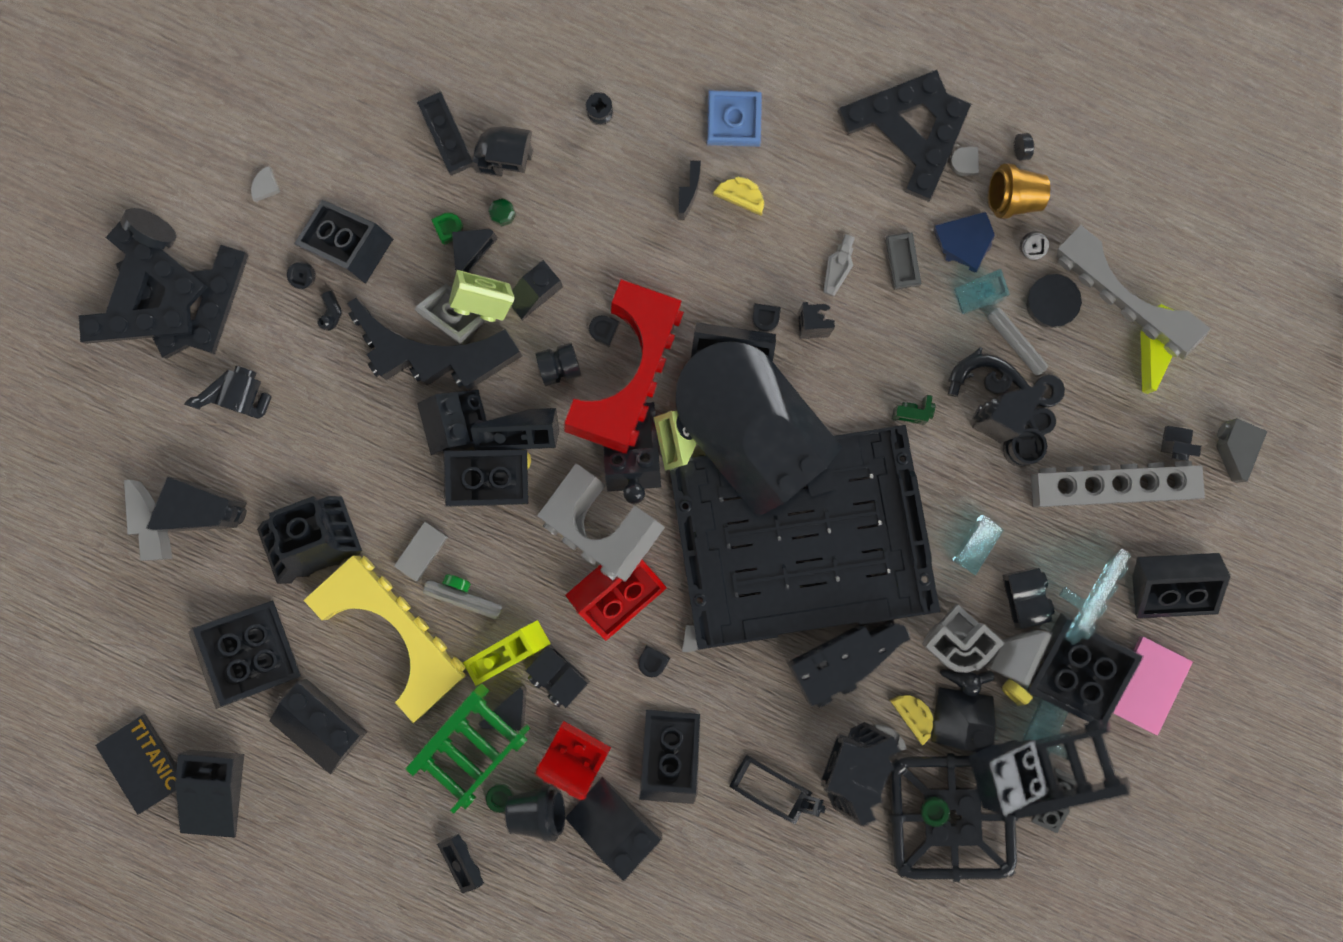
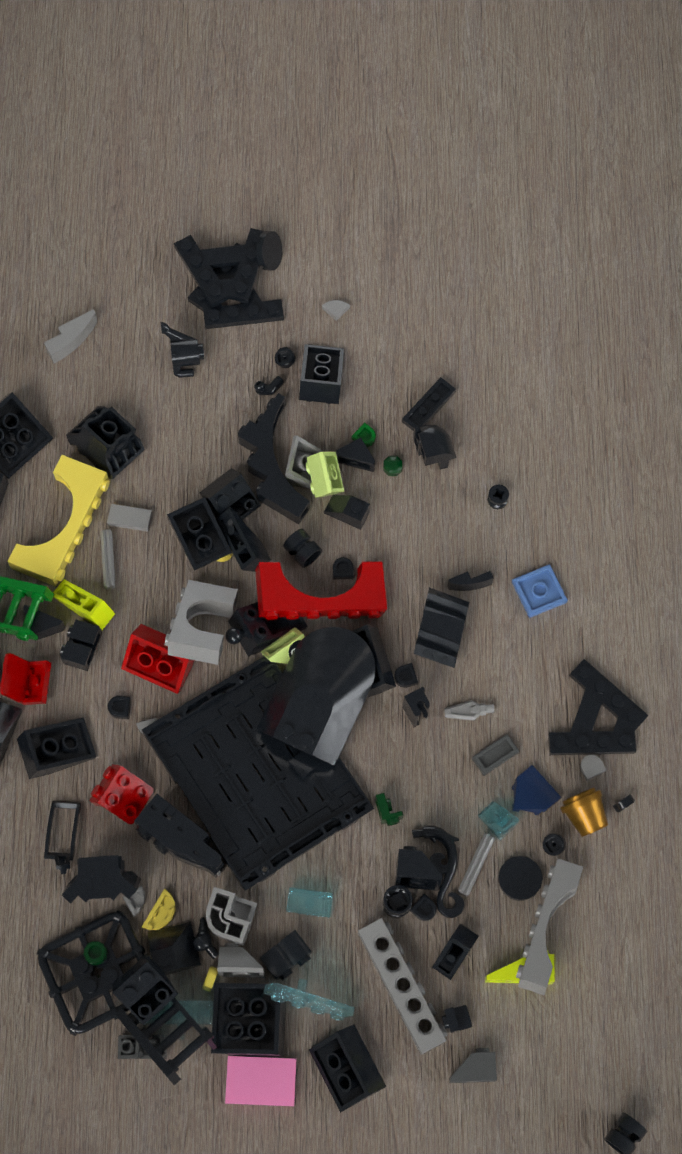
camera: 60 degrees right, 15 degrees down
(194, 507) = (94, 358): black slope -> none
(456, 583) = (117, 549): green tile -> none
(733, 250) = (441, 627): none -> black slope
(741, 193) = (487, 620): light yellow tile -> none
(759, 704) = (121, 793): none -> red bracket
(1105, 408) = (455, 951): none -> black slope

